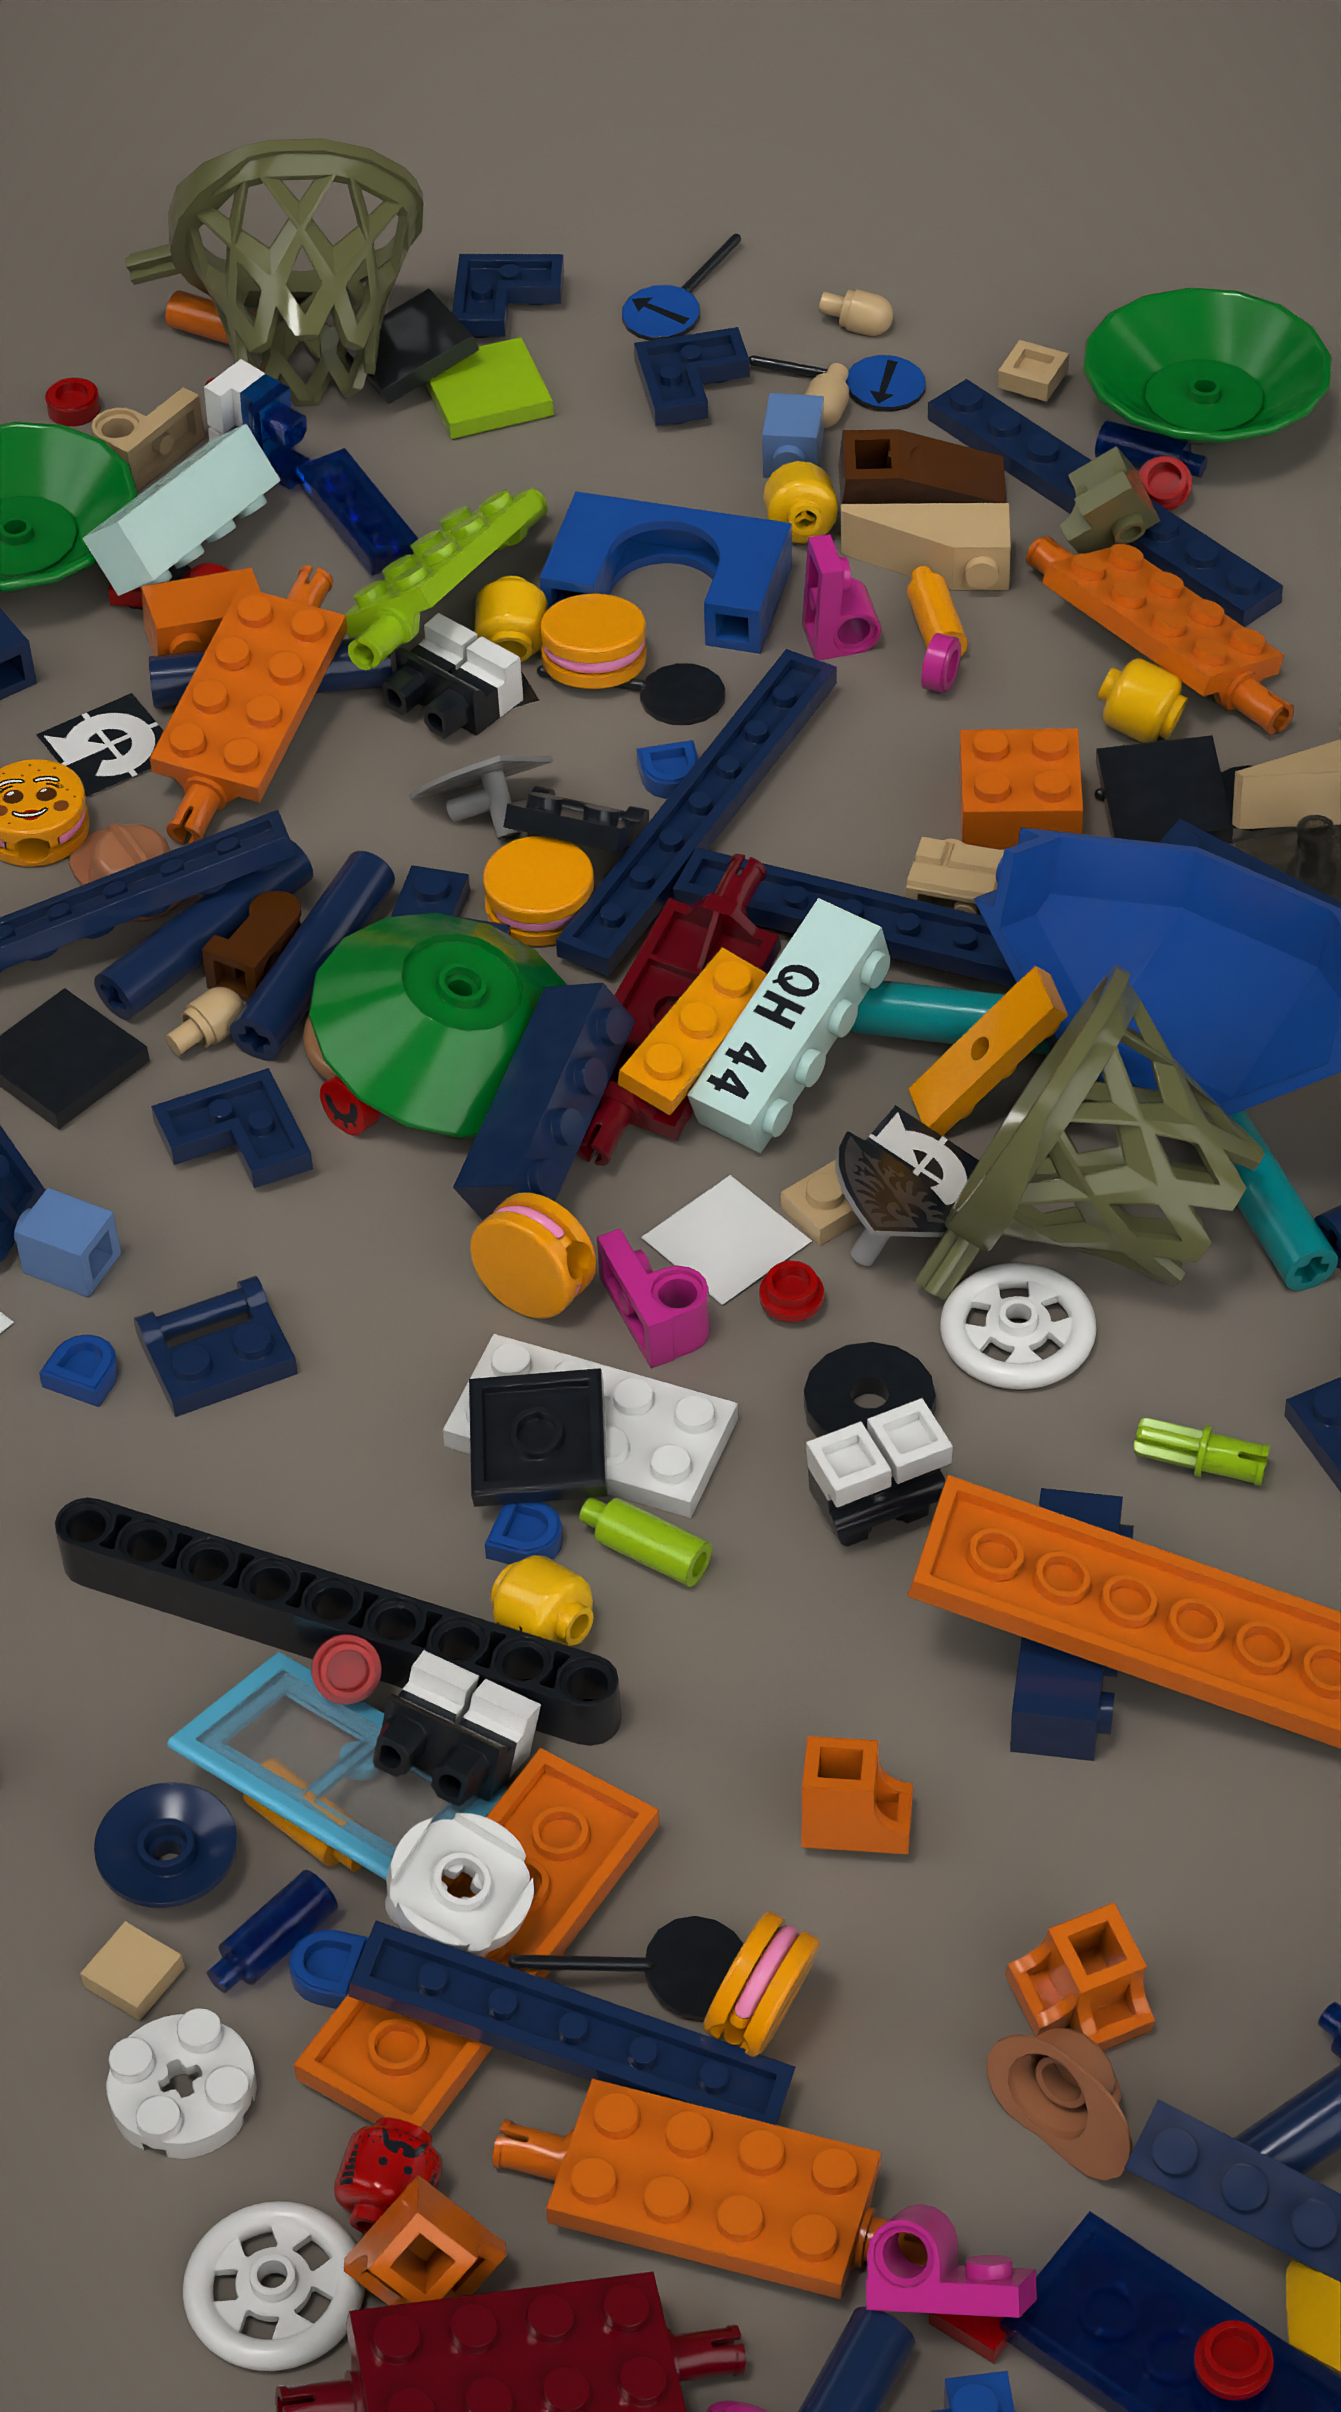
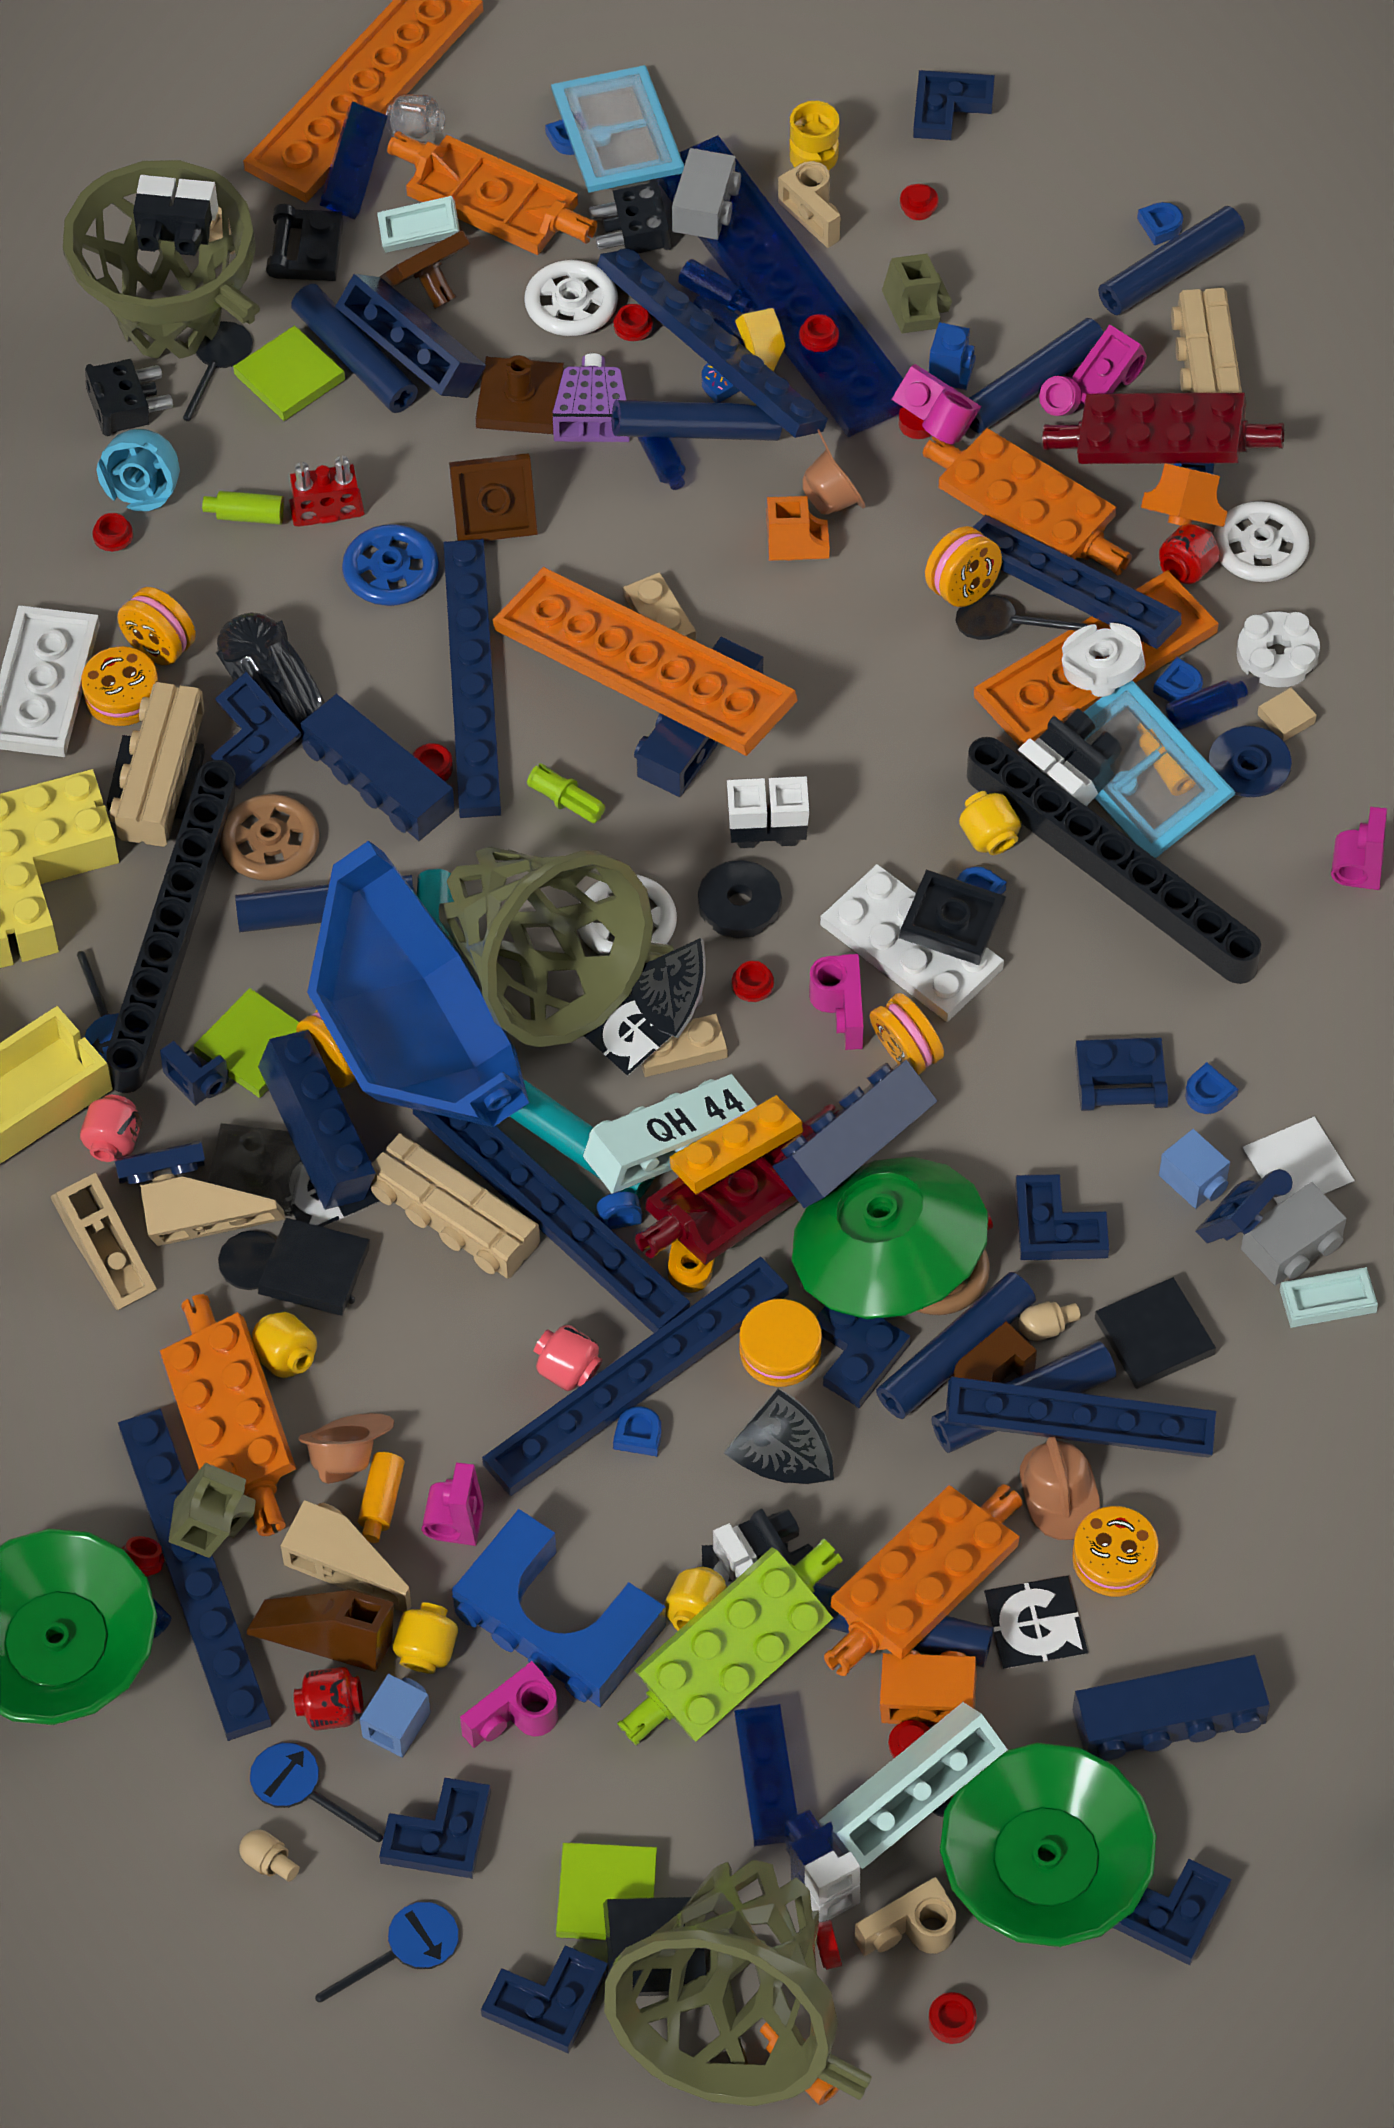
camera: 160 degrees left, 10 degrees up
(346, 1669) = (1118, 811): red plate -> none
(575, 820) = (735, 1367): black plate -> none
(593, 641) = (645, 1551): light orange head -> none
(648, 1539) = (907, 848): lime cylinder -> none
(670, 477) = (507, 1703): none -> dark pink plate
(677, 693) = (600, 1508): black piece -> none
(727, 1238) = (772, 1046): white sticker -> none
(793, 792) = (567, 1357): none -> coral head
(835, 392) = (344, 1762): tan cylinder -> none
(852, 1800) = (868, 661): orange brick -> none
(871, 410) = (329, 1698): none -> red head
(941, 663) = (404, 1436): dark pink tile -> none
(988, 1051) = (559, 1058): light orange tile -> none
(1007, 630) = (345, 1445): none -> nougat piece
(1018, 782) = (415, 1290): orange brick -> none
(1033, 370) = (169, 1721): tan plate -> none
(1230, 1788) = (656, 601): none -> tan plate

